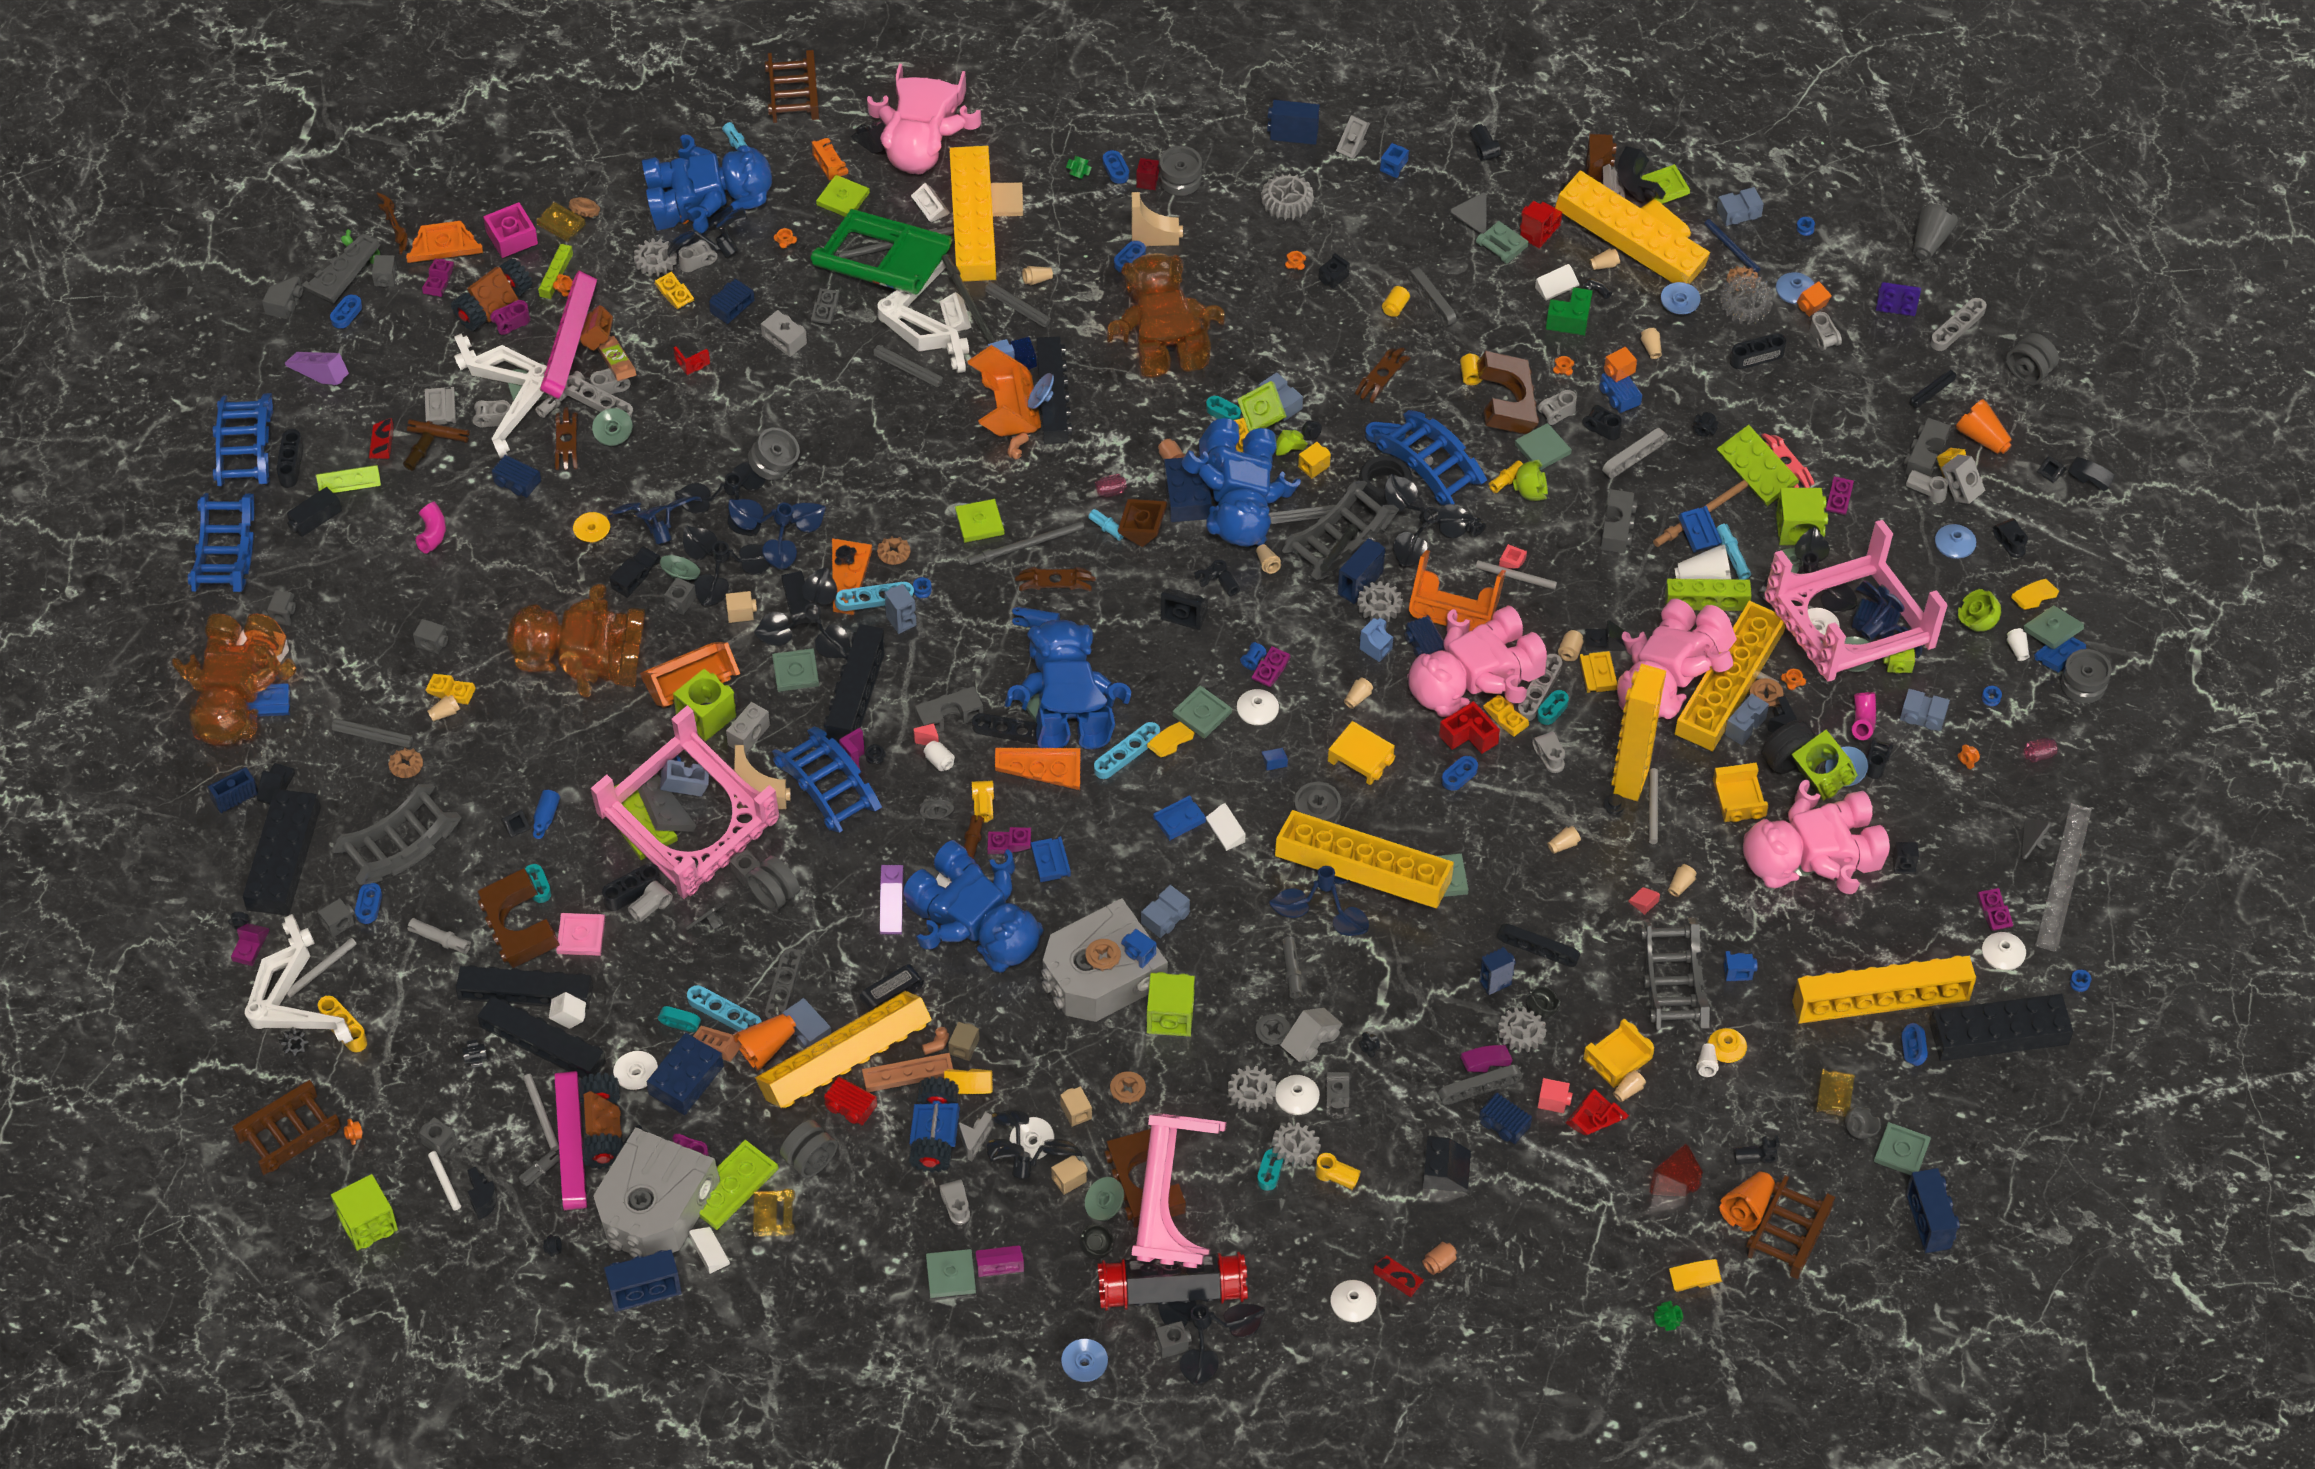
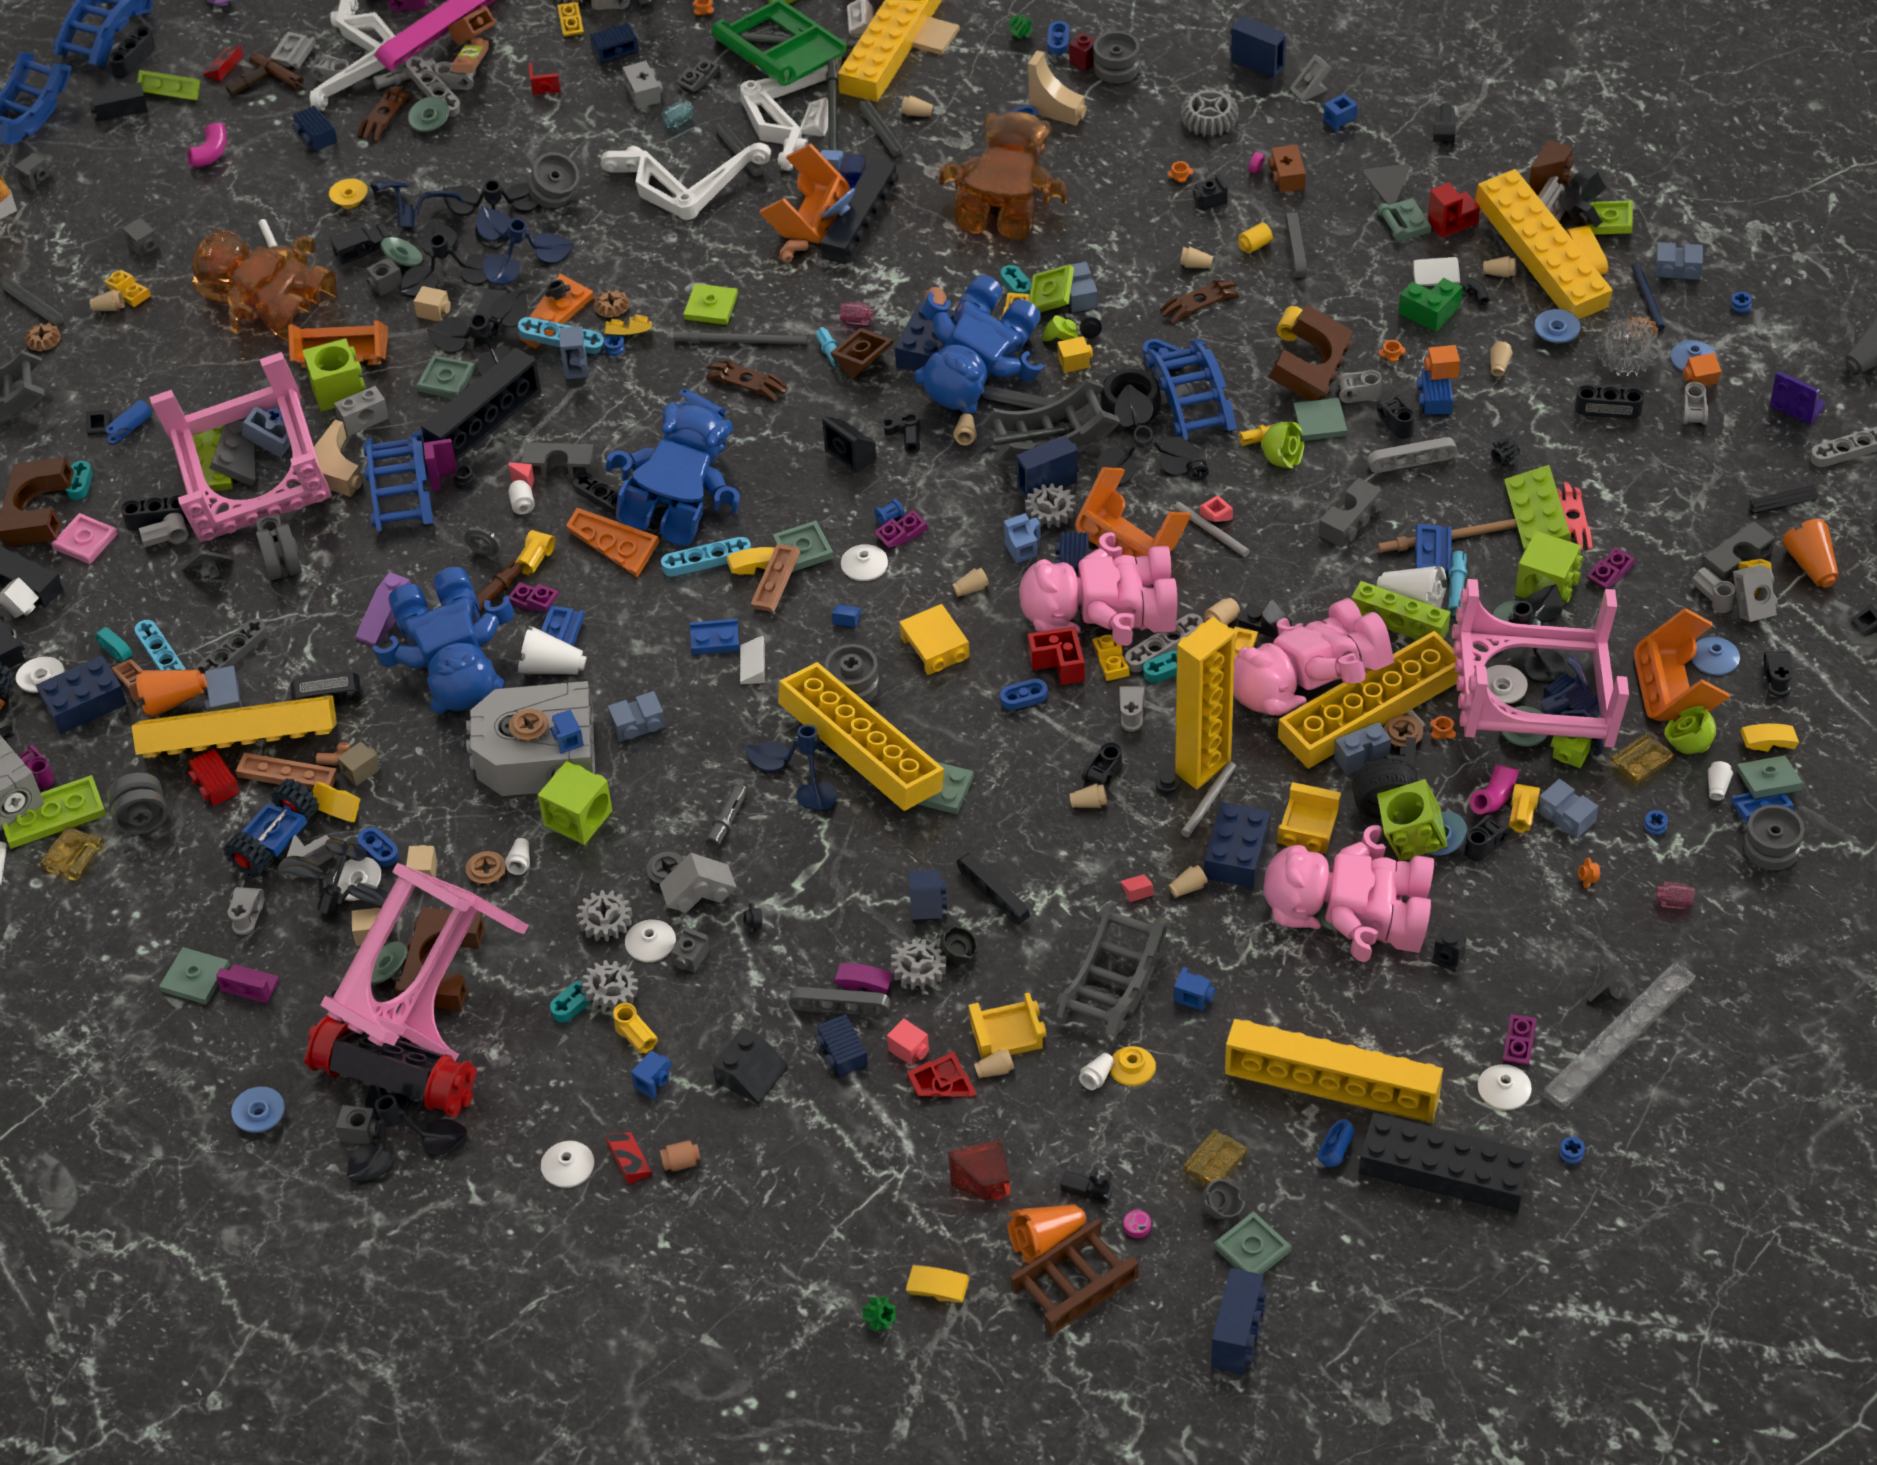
camera: 30 degrees right, 5 degrees down
(547, 596) = (267, 233): none -> white bar
(834, 350) = (677, 113): none -> clear light blue brick
(899, 433) = (687, 201): none -> white piece
(928, 566) = (635, 325): none -> yellow slope
(1029, 1104) = (380, 848): none -> blue plate
(1059, 887) = (549, 655): none -> white cone
(1149, 1068) = (518, 858): none -> white cone
(1201, 748) = (775, 577): none -> nougat plate
(1354, 231) = (1256, 163): none -> dark pink tile
(1357, 337) = (1195, 259): none -> tan cone
(1375, 1202) = (651, 1073): none -> blue brick
(1383, 227) = (1287, 168): none -> dark orange brick
(1561, 812) = (1104, 765): none -> black piece
(1701, 835) = (1237, 844): none -> dark blue brick
(1808, 1167) = (1137, 1224): none -> dark pink tile
(1890, 716) = (1524, 803): none -> yellow piece
(1922, 564) = (1663, 673): none -> orange windscreen
(1953, 647) = (1642, 758): none -> clear yellow plate

